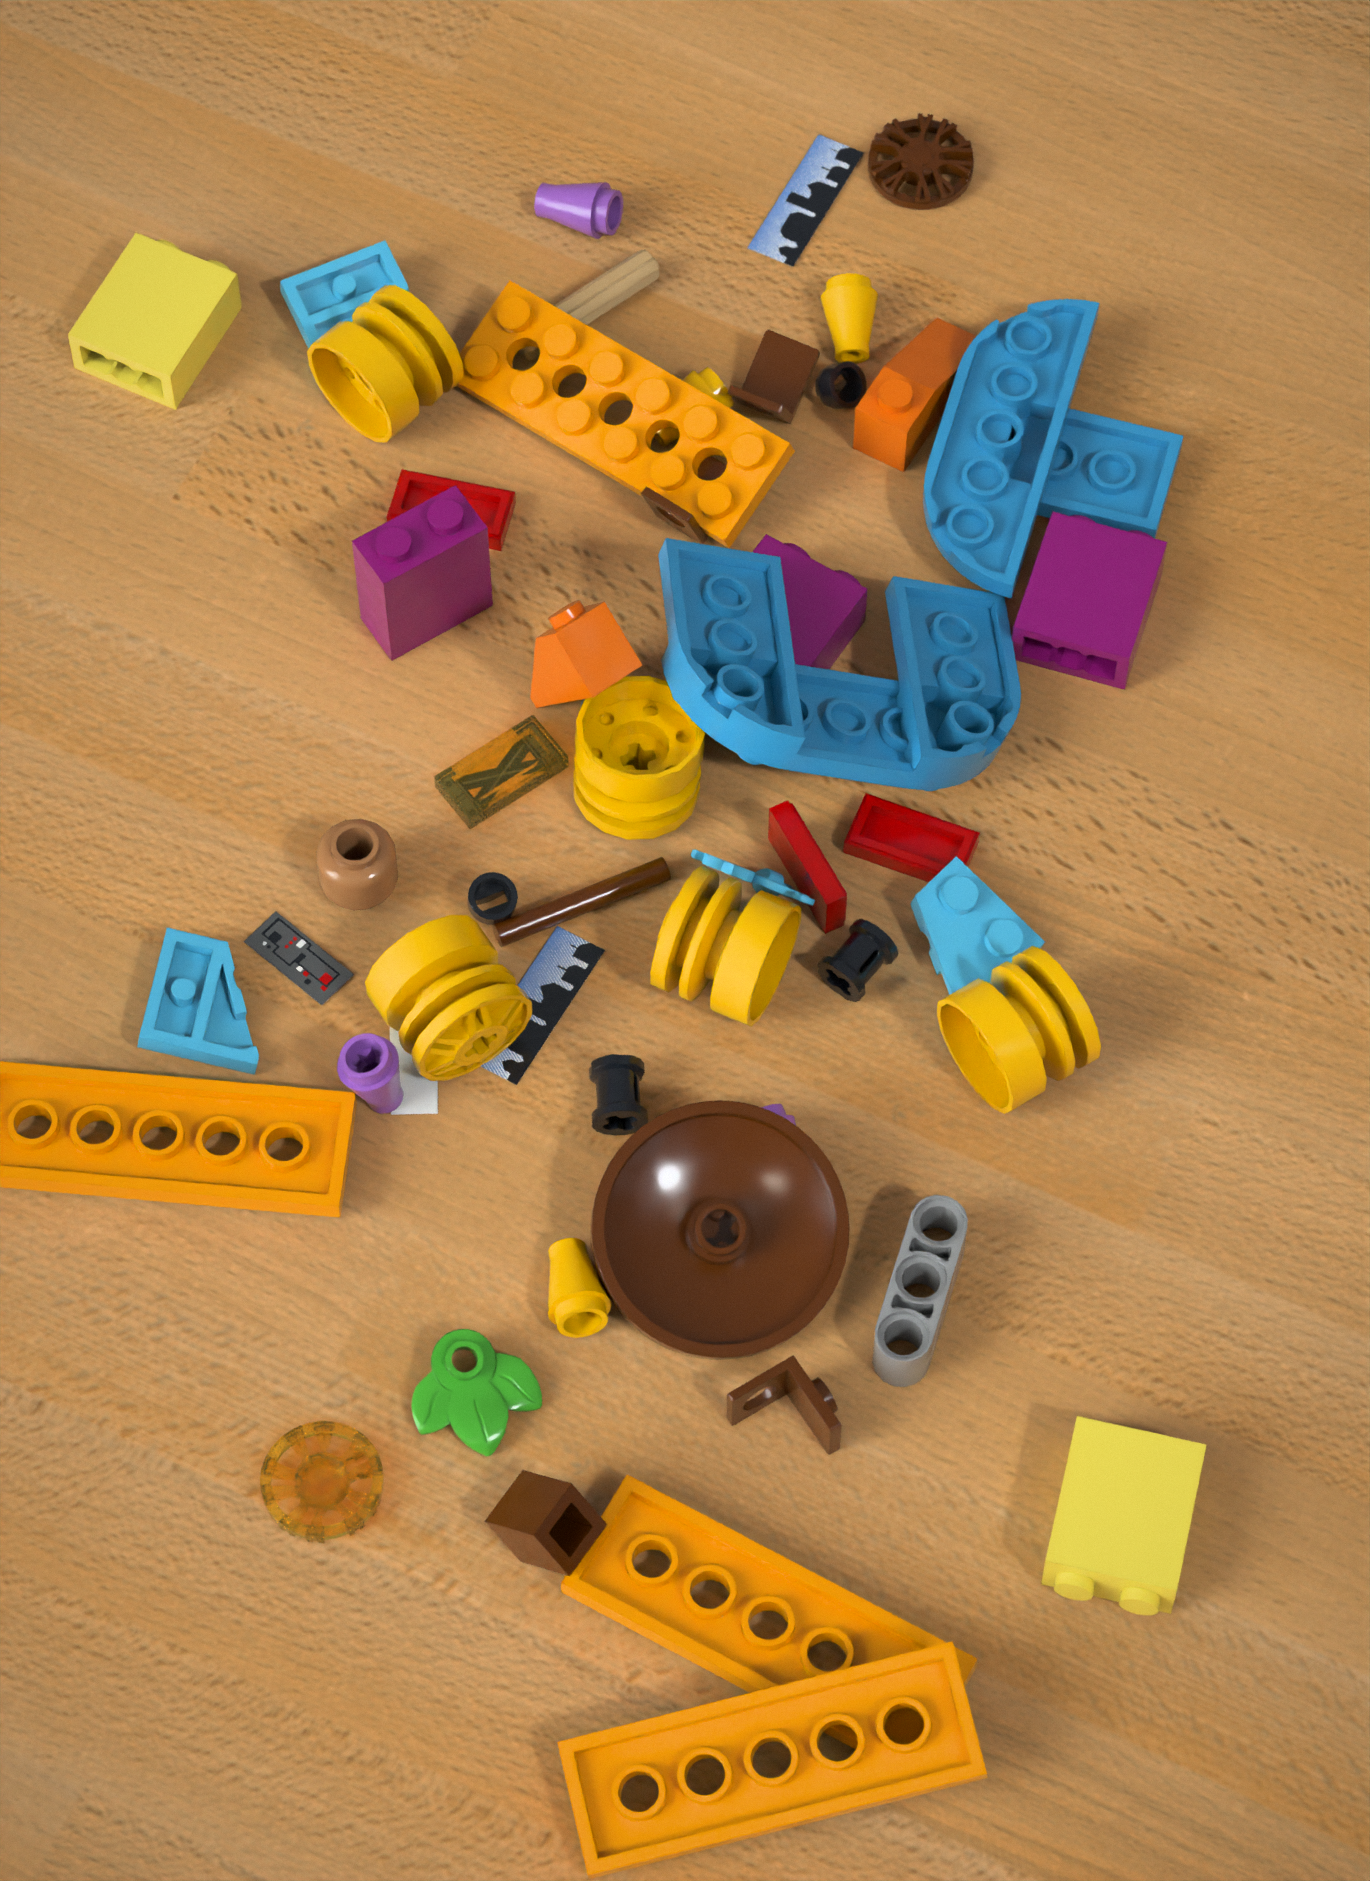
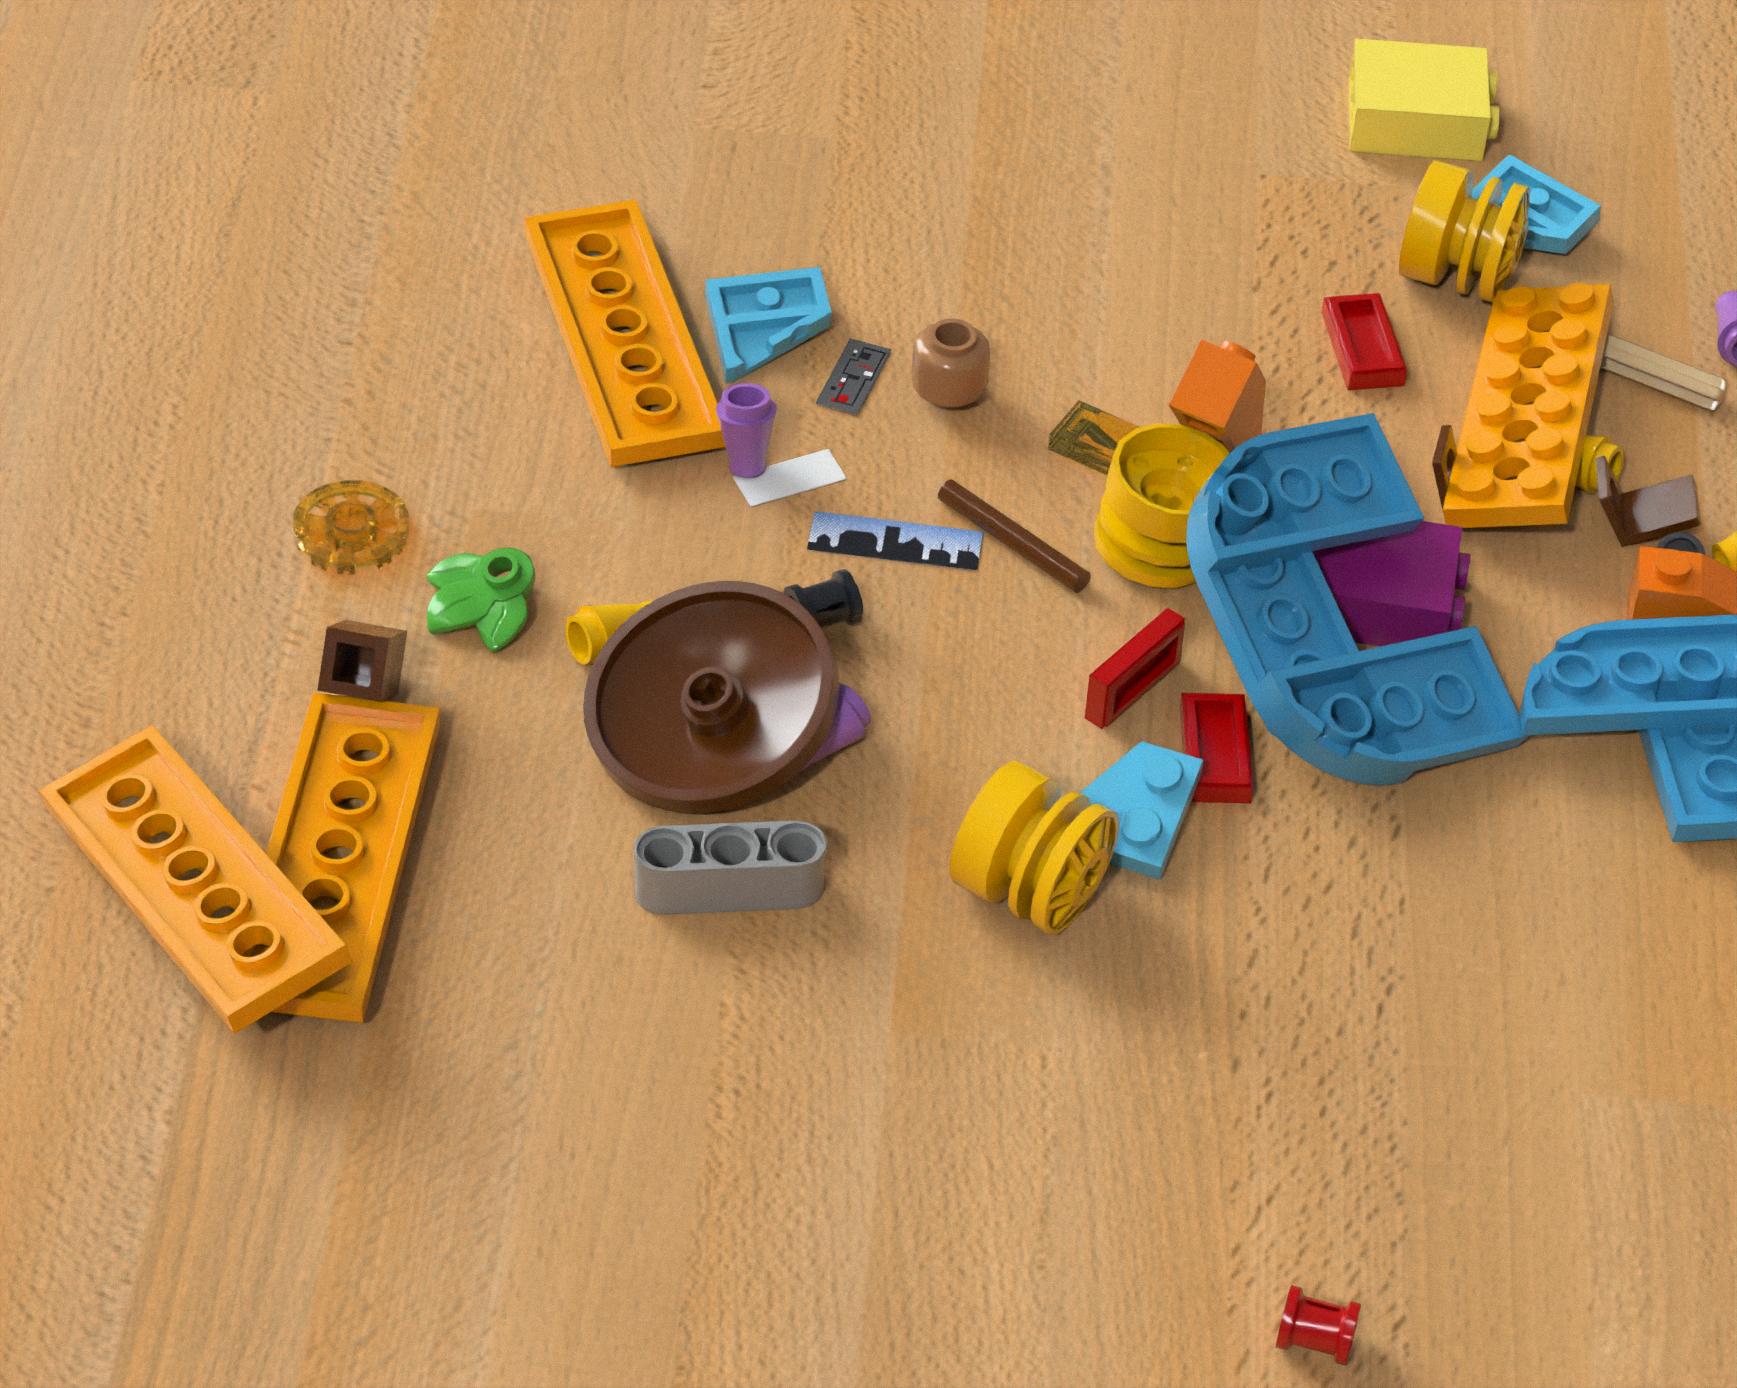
camera: 65 degrees right, 15 degrees down
(423, 572) = (1264, 299): magenta brick -> none
(448, 997) = (844, 447): yellow wheel -> none
(487, 888) = (980, 460): black hinge -> none
(714, 941) = (1003, 615): yellow wheel -> none
(763, 879) = (1097, 634): medium azure piece -> none
(809, 1397) = (578, 811): reddish brown bracket -> none
(857, 960) = (1040, 718): black bush -> none
(1088, 599) = (1565, 797): magenta brick -> none
(1123, 1516) = (562, 1083): light yellow brick -> none

